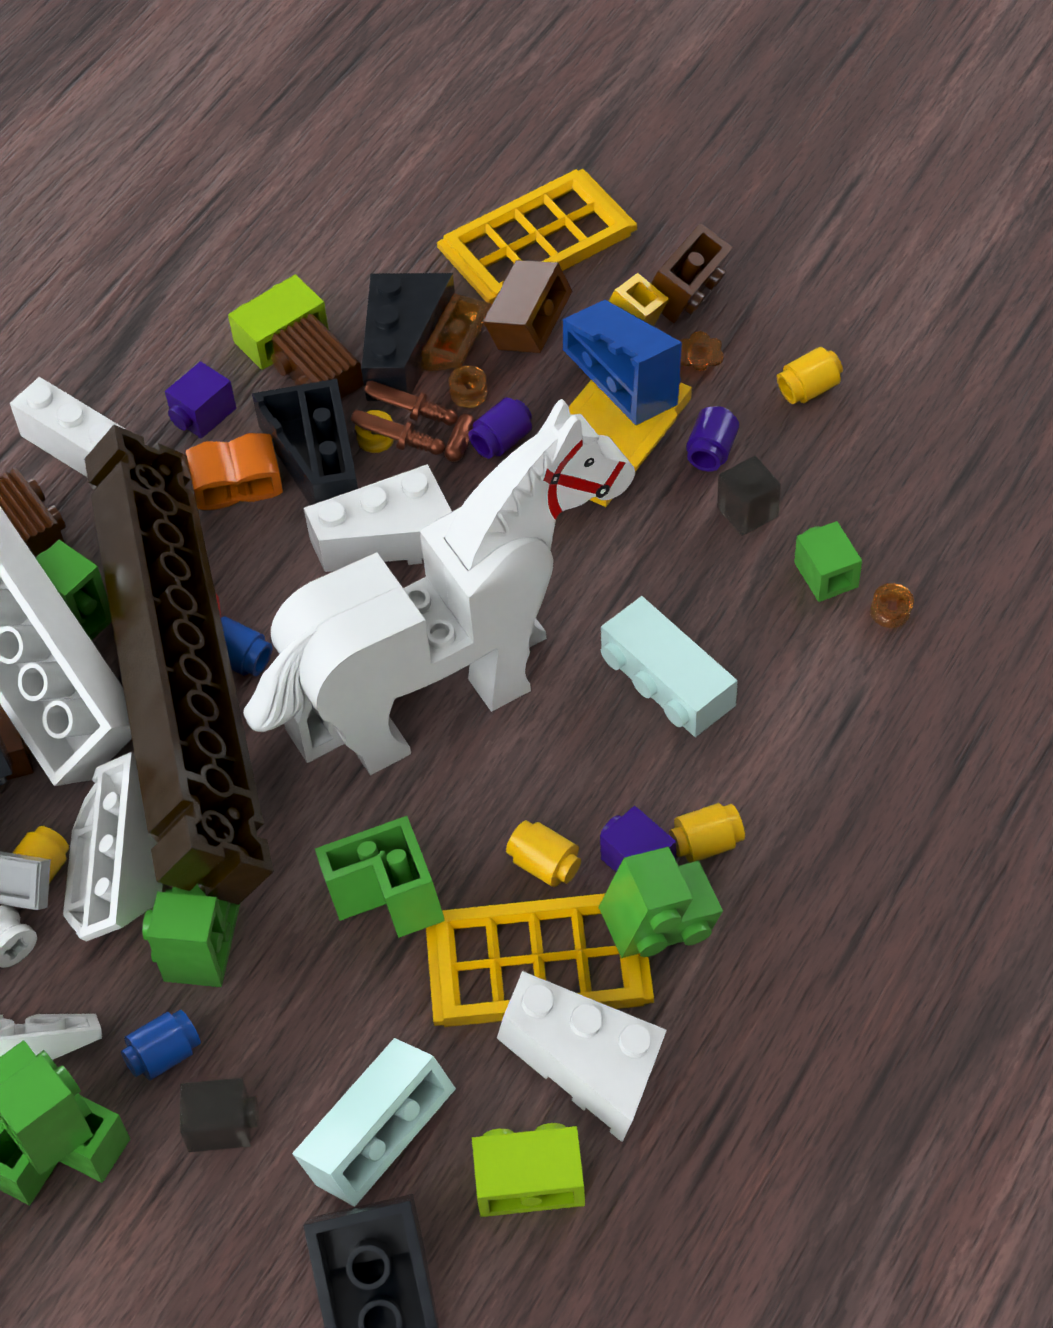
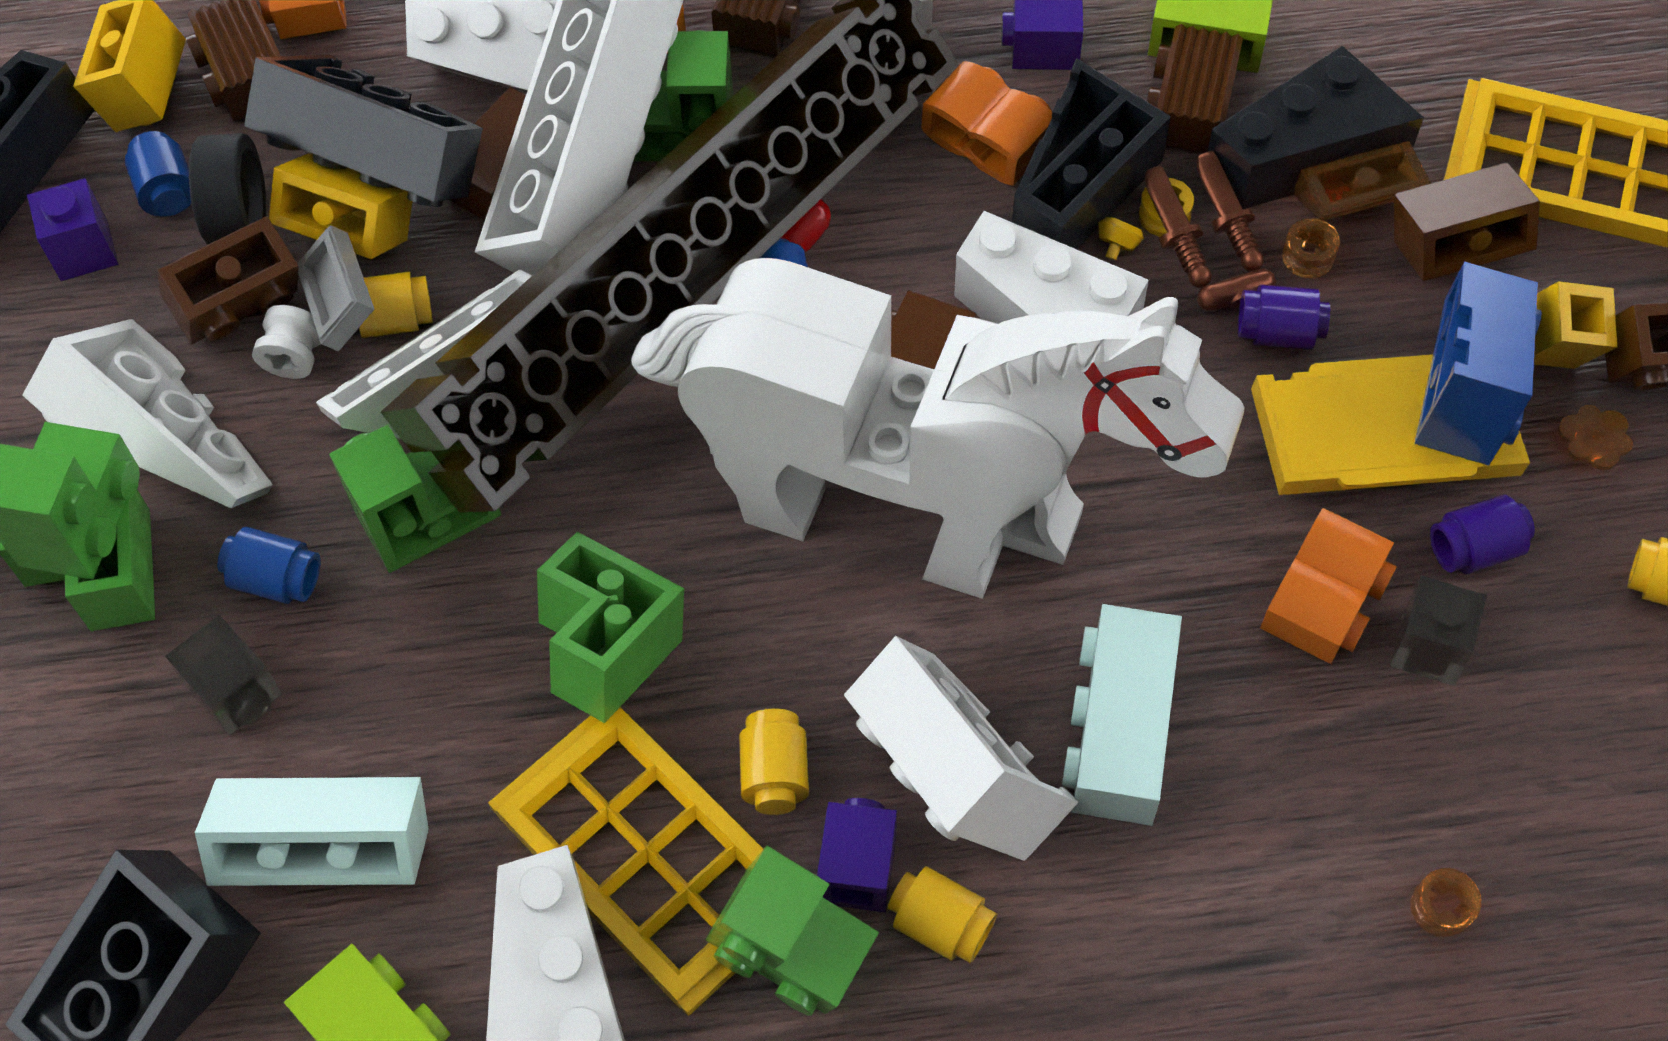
camera: 50 degrees right, 5 degrees up
(371, 465) = (1119, 236): none -> yellow rock
(619, 757) = (953, 753): none -> white wedge
(679, 524) = (1328, 585): none -> orange brick
(827, 561) = (1432, 783): bright green brick -> none

